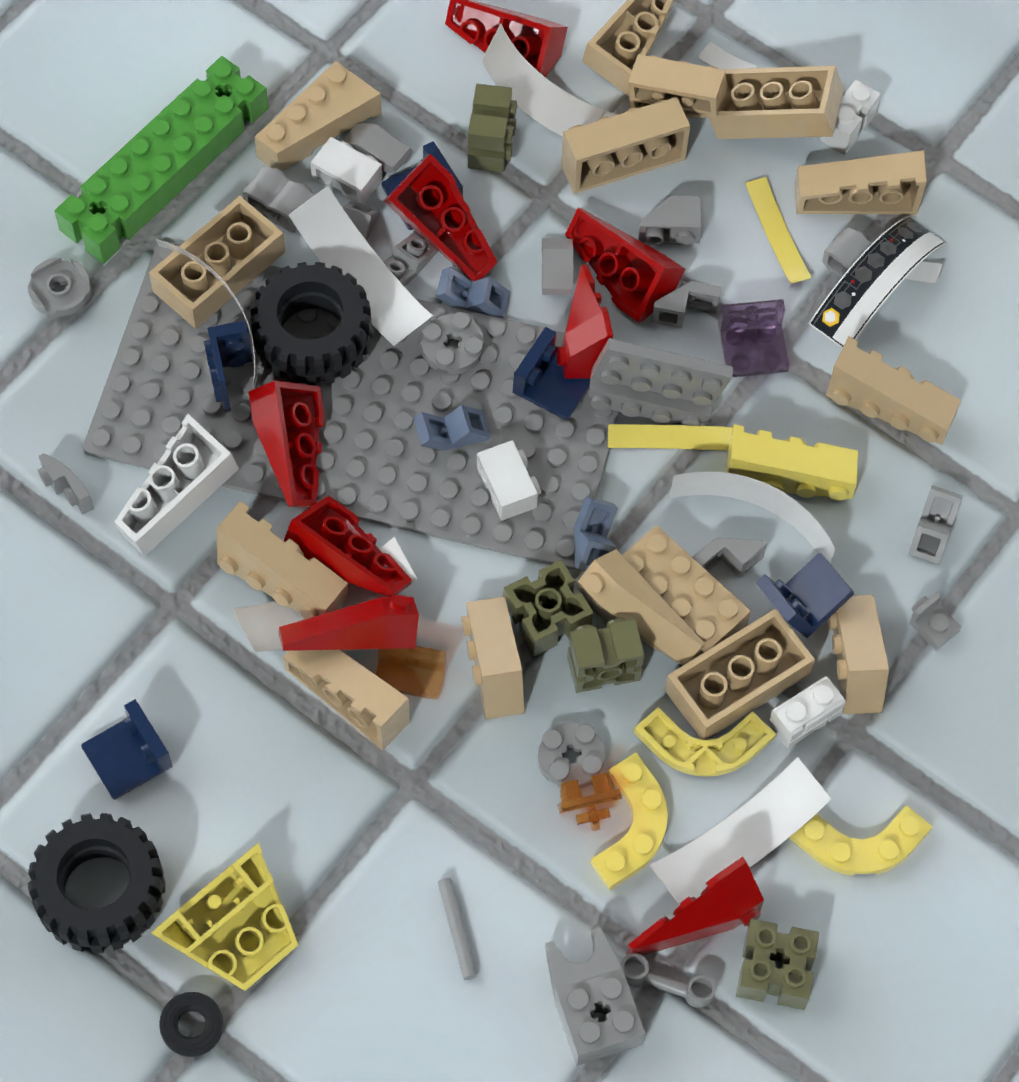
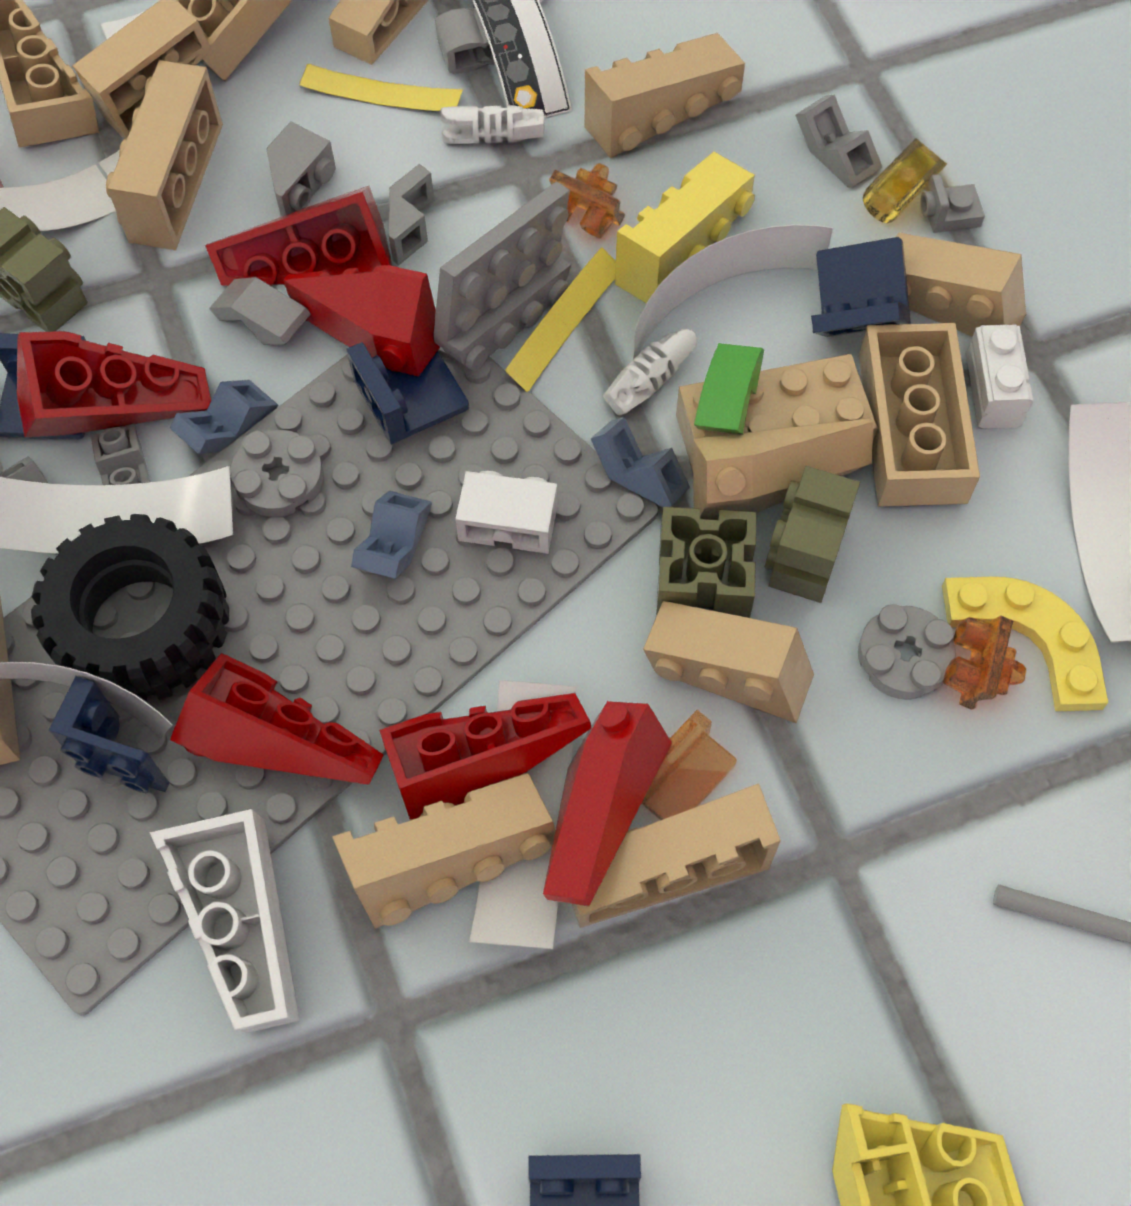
camera: 55 degrees left, 0 degrees up
(64, 480) = (103, 1069): light grey slope -> none
(667, 506) = (649, 370): none -> white hinge
(670, 545) = (728, 387): none -> bright green slope
(704, 756) = (986, 517): light yellow plate -> none
(735, 553) = (761, 329): light grey slope -> none
(754, 337) = (493, 176): clear purple bracket -> none
(770, 387) = (592, 194): none -> clear orange hips
(797, 314) = (491, 124): none -> white hinge
(928, 578) = (902, 182): none -> clear yellow brick

